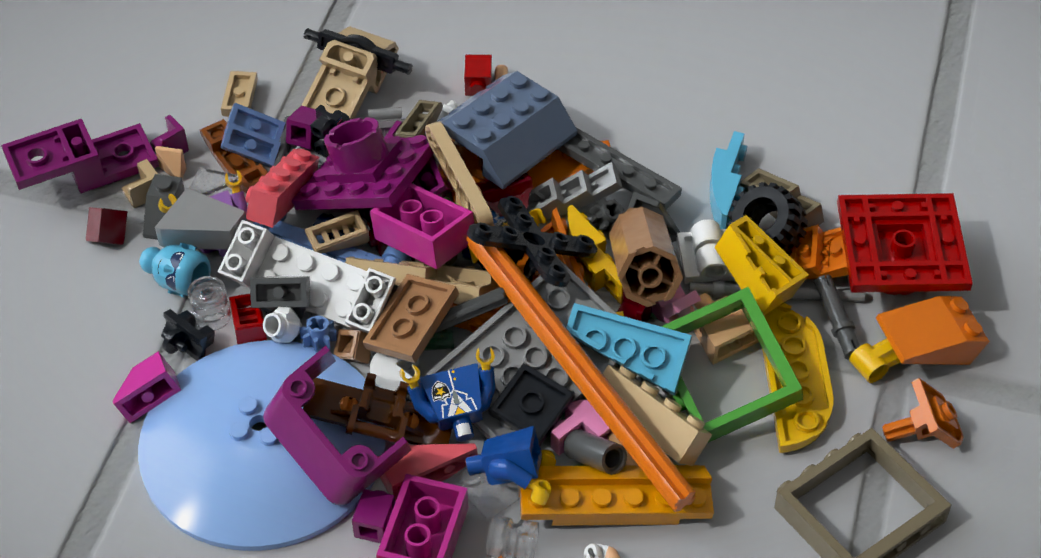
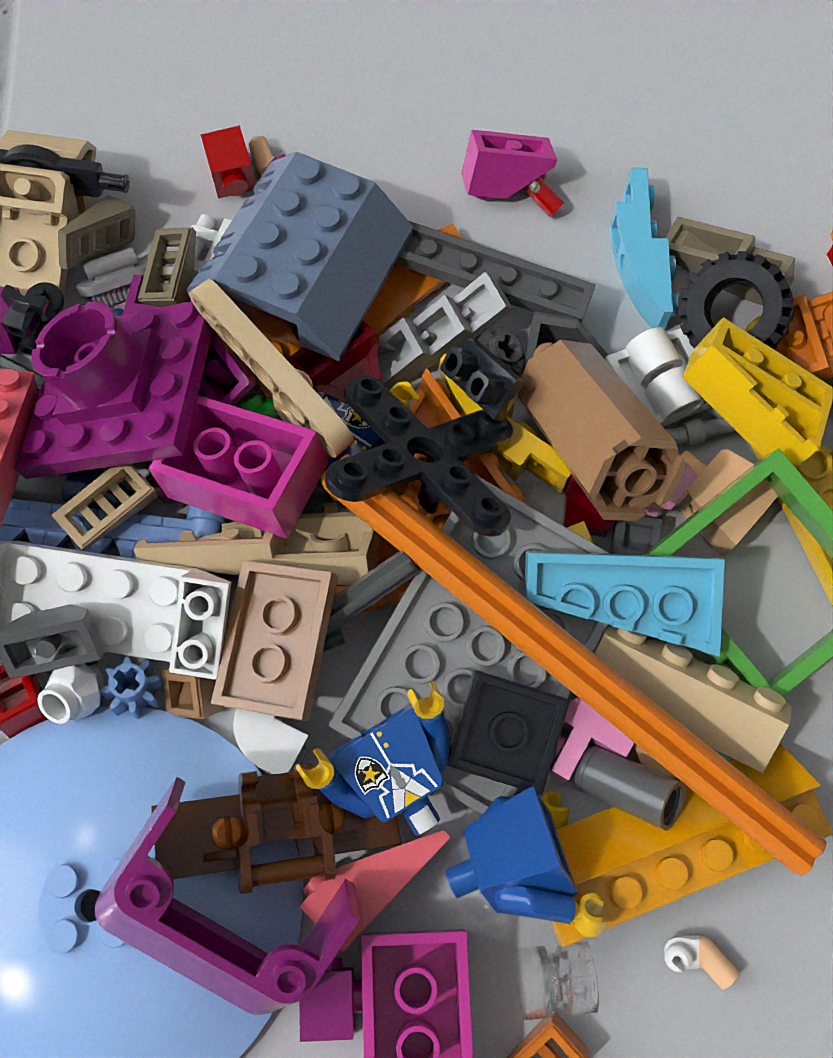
camera: 20 degrees left, 20 degrees up
(386, 93) = (99, 229): none -> dark tan slope
(586, 215) = (482, 377): none -> black hips
(652, 111) = (504, 163): none -> dark pink slope
(671, 129) = (544, 195): none -> red arm

